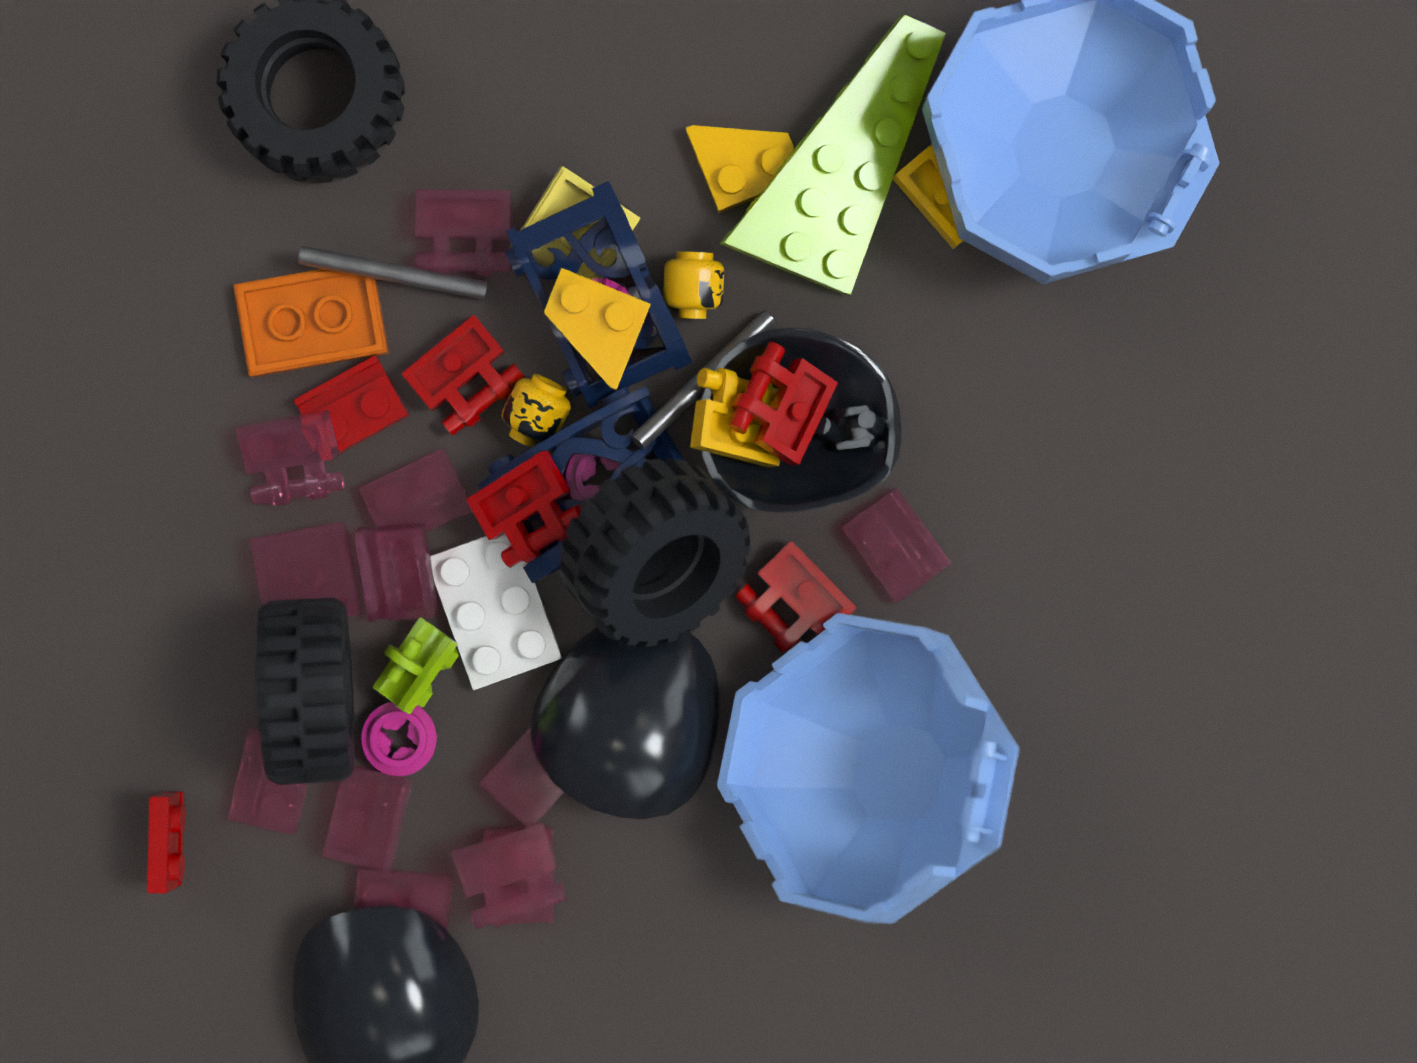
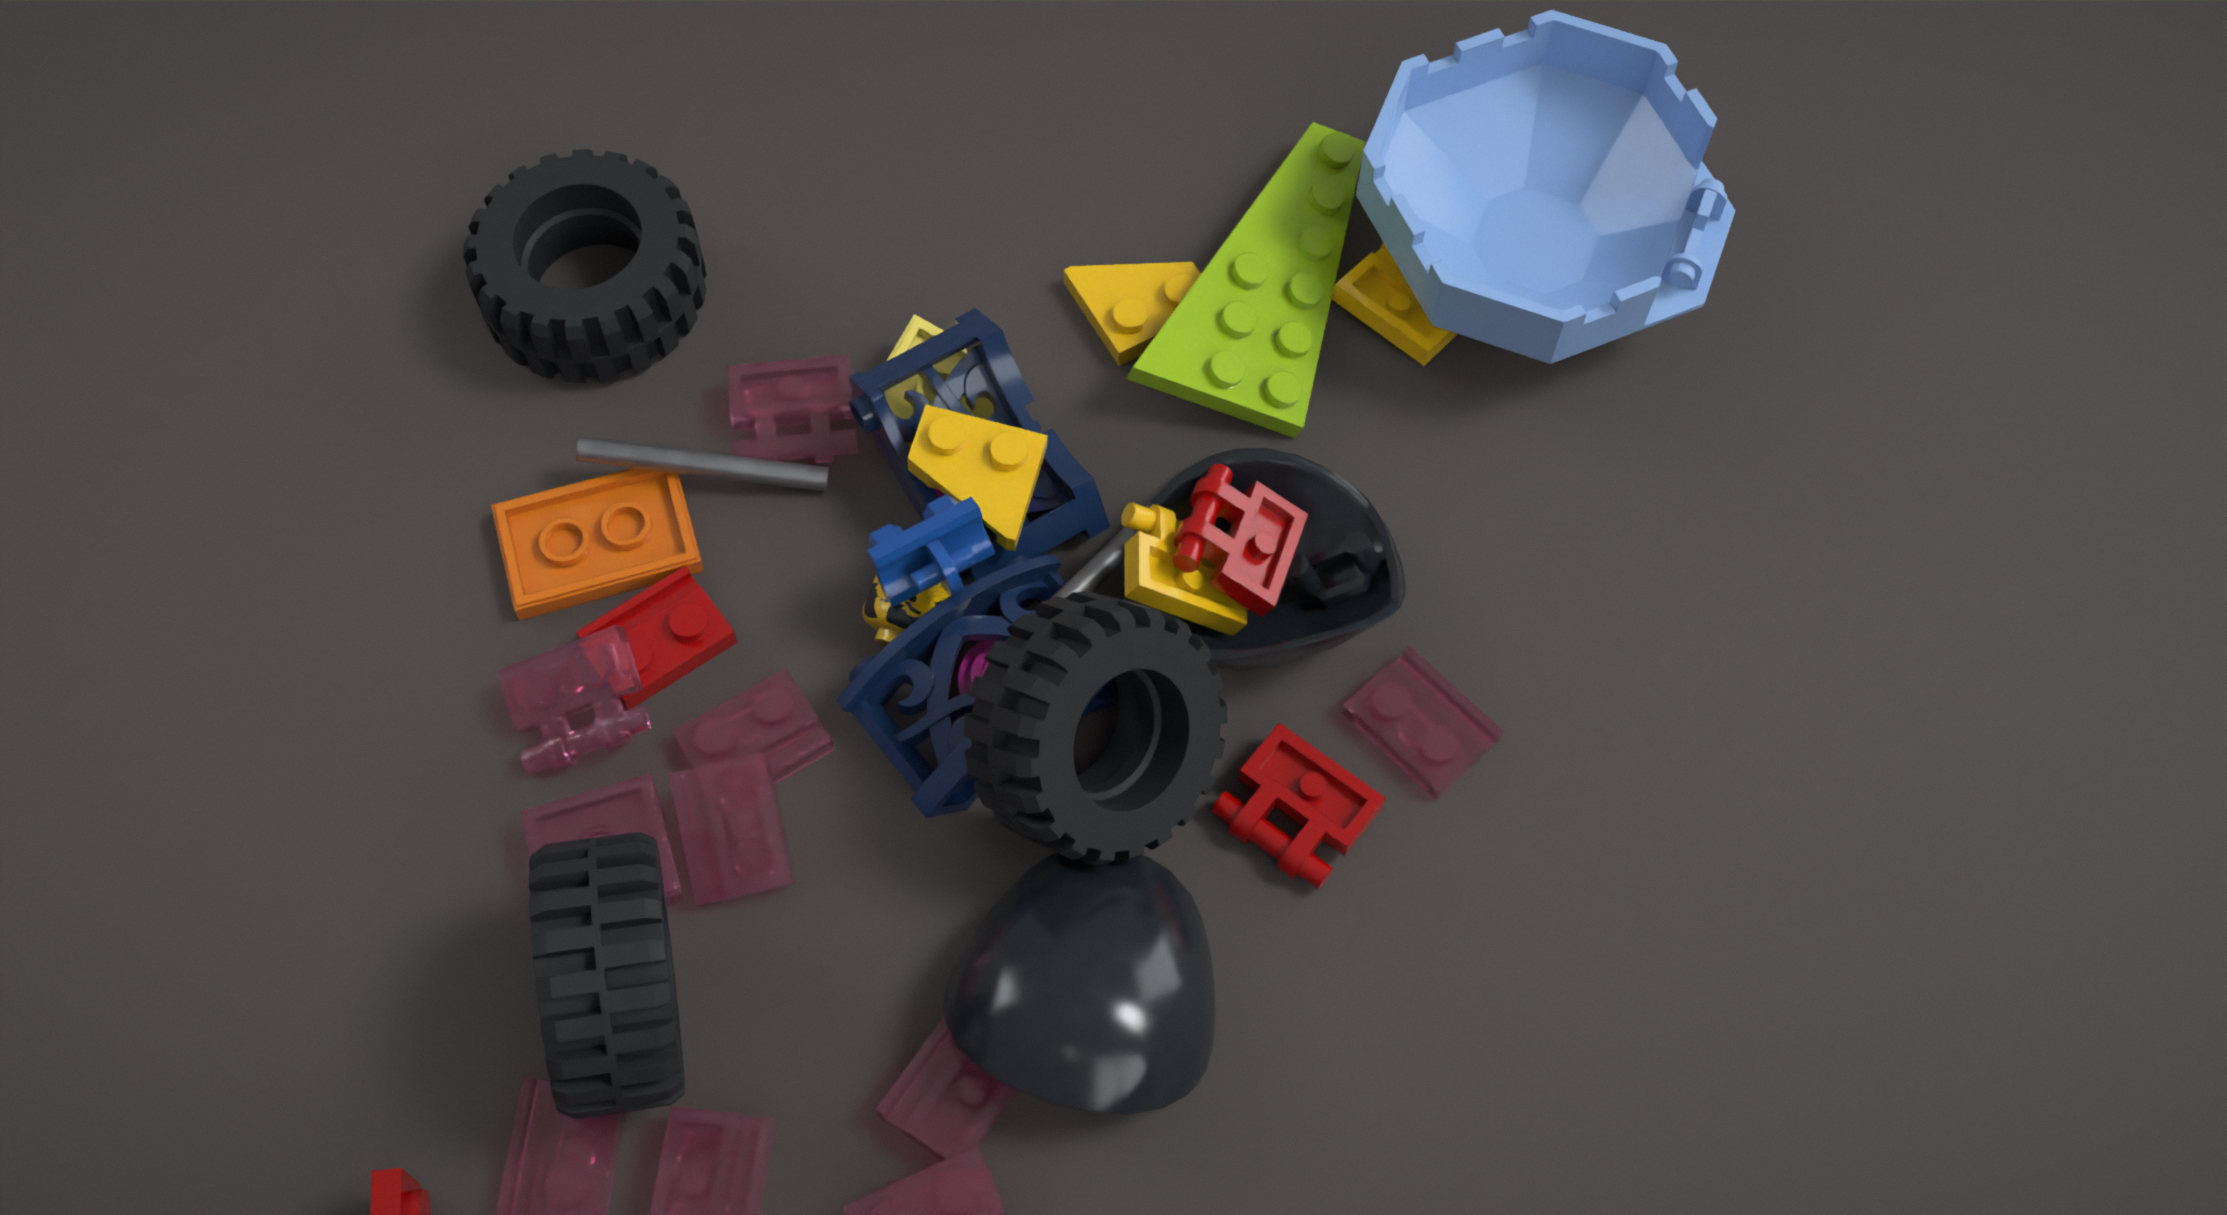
camera: 10 degrees left, 25 degrees down
(378, 745) = (740, 1036): dark pink gear -> none
(415, 666) = (766, 948): lime hips -> none
(455, 363) = (791, 565): red plate -> none
(493, 612) = (876, 872): white plate -> none
(517, 497) = (893, 697): red plate -> none
(554, 396) = (930, 551): none -> blue hips
(693, 284) = (1100, 430): yellow head -> none
(868, 769) = (1453, 983): light blue windscreen -> none

